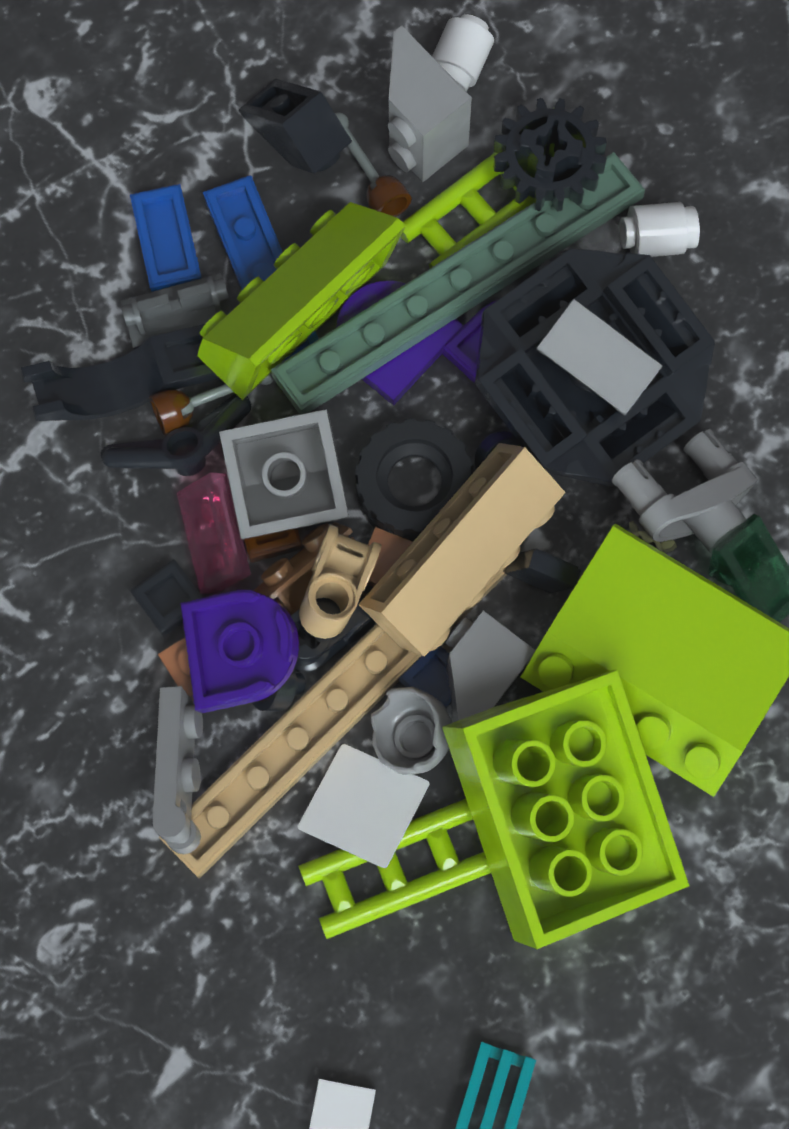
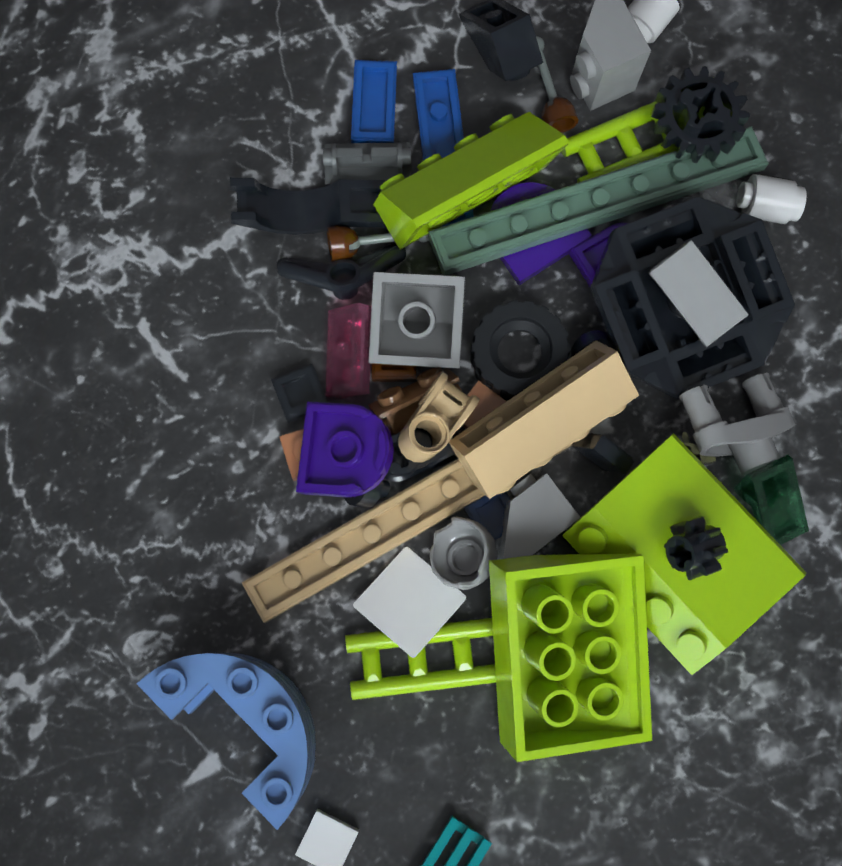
camera: 10 degrees right, 5 degrees up
(135, 952) = (264, 701): none -> medium blue cylinder
(176, 770) = (268, 535): light grey plate -> none
(673, 643) = (695, 548): none -> black gear

